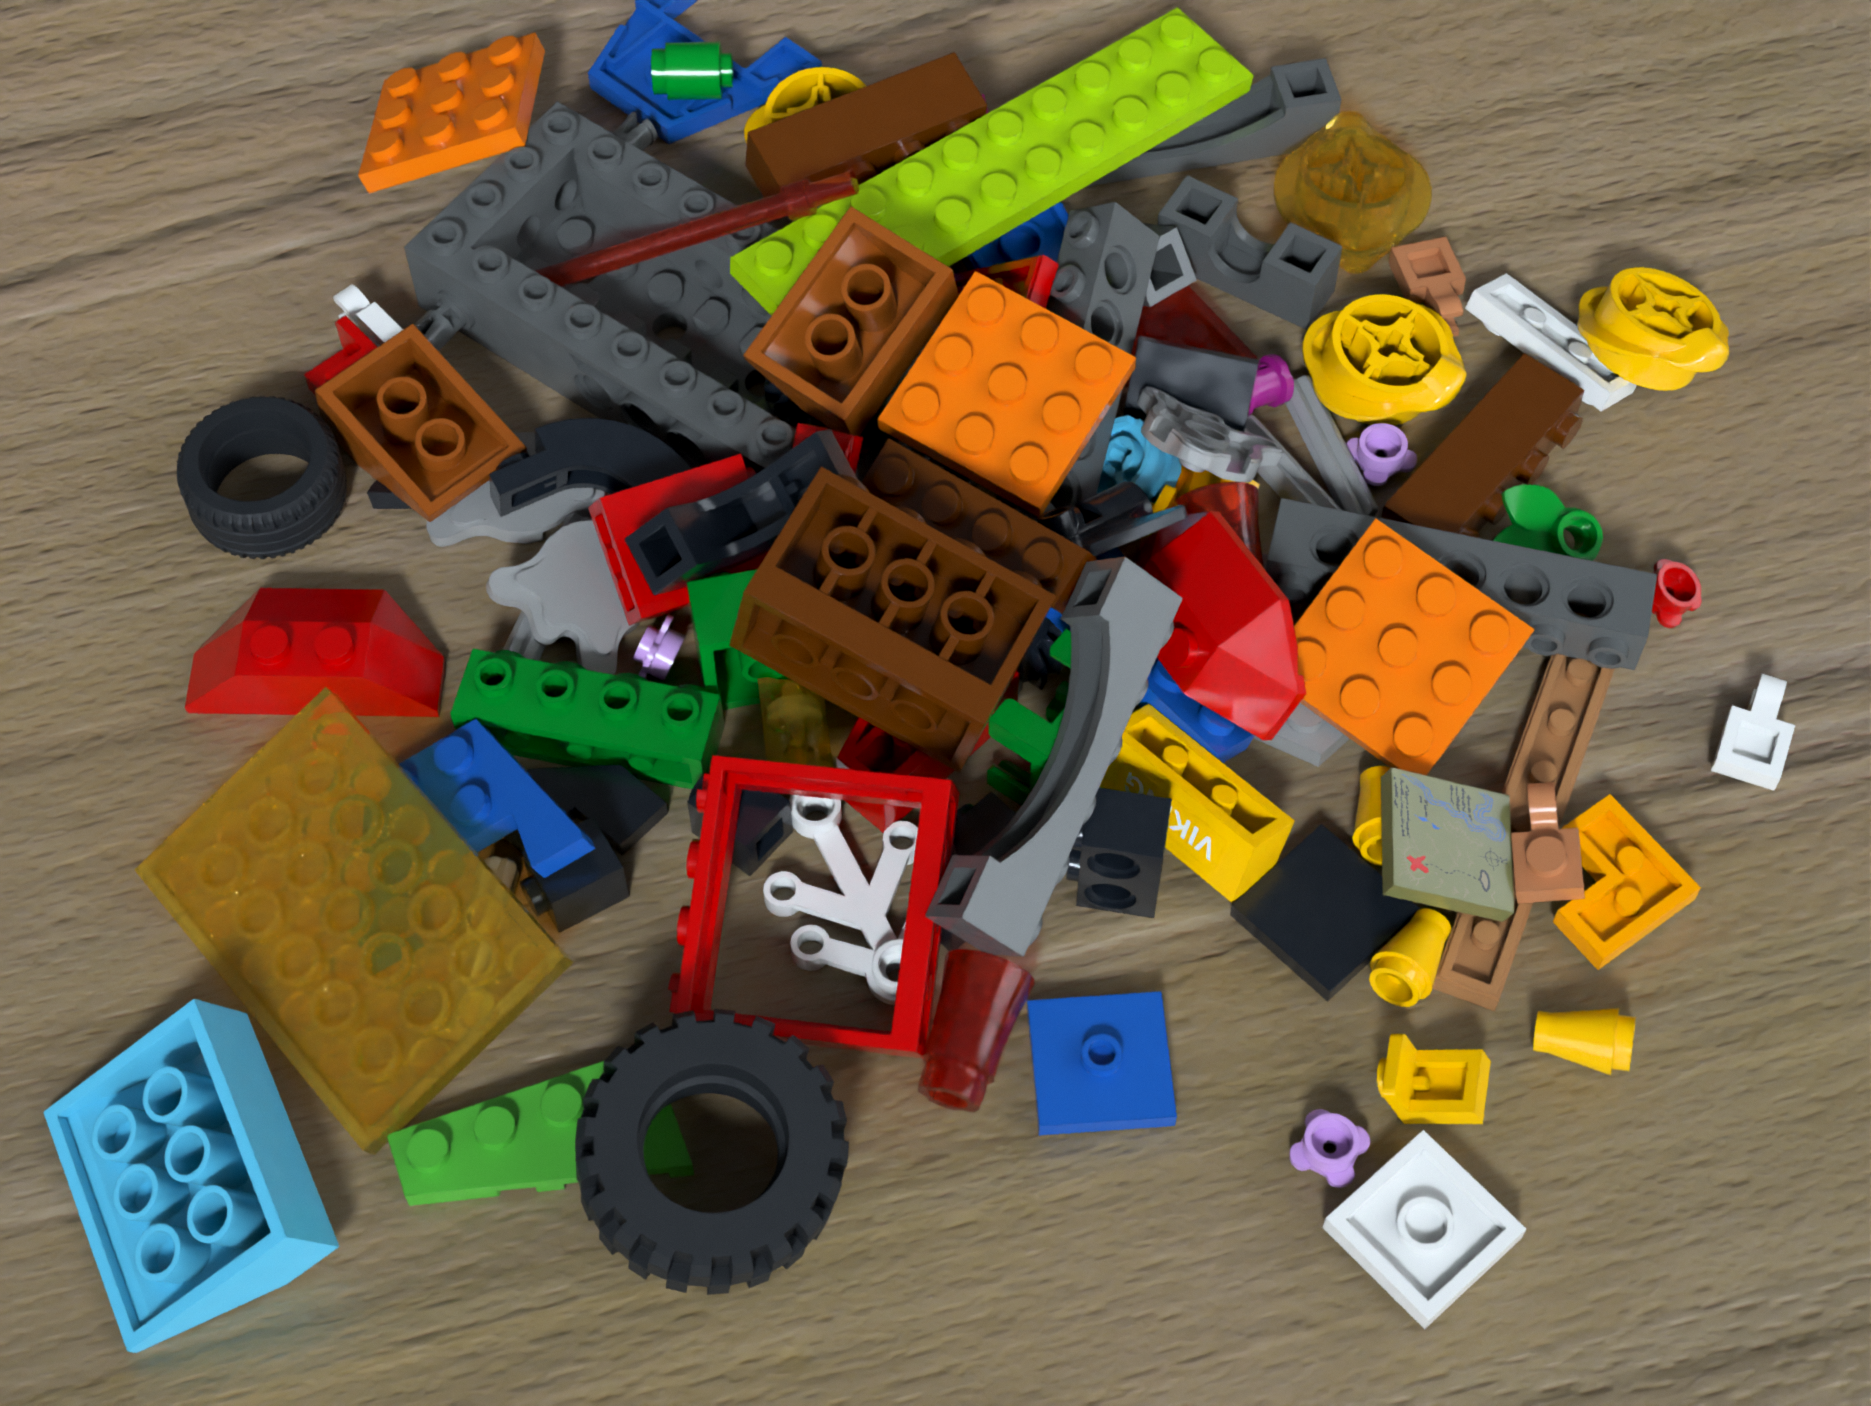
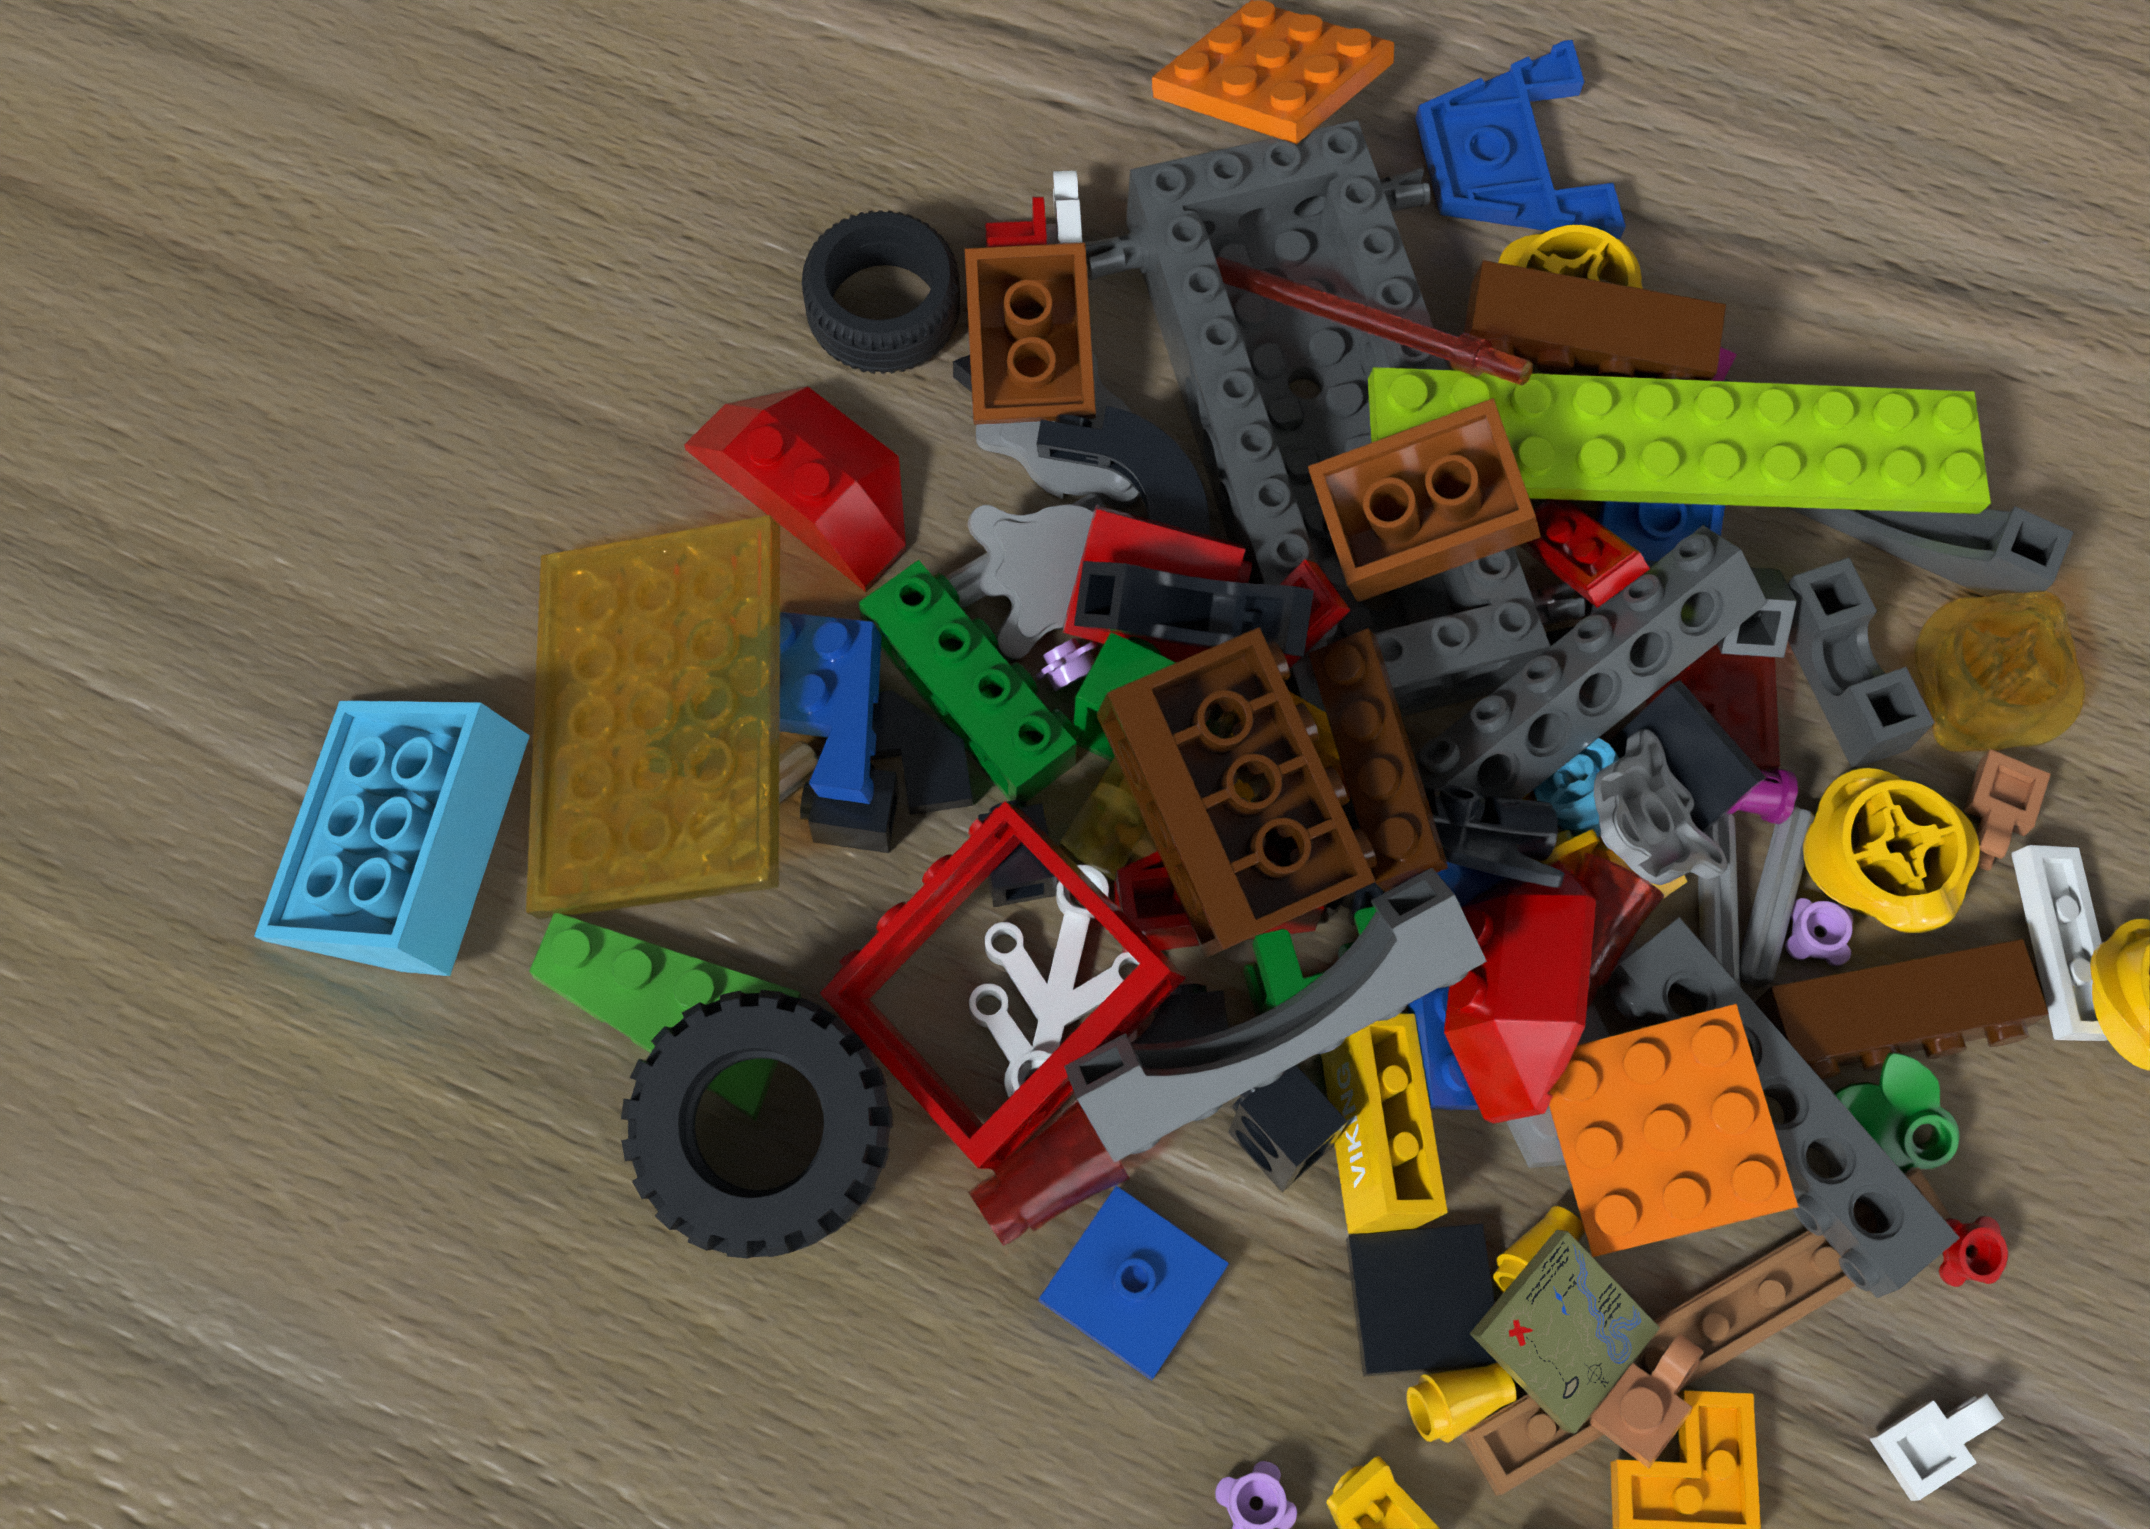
camera: 35 degrees right, 10 degrees up
(691, 70) = (1499, 163): green brick -> none
(1007, 393) = (1508, 656): orange plate -> none

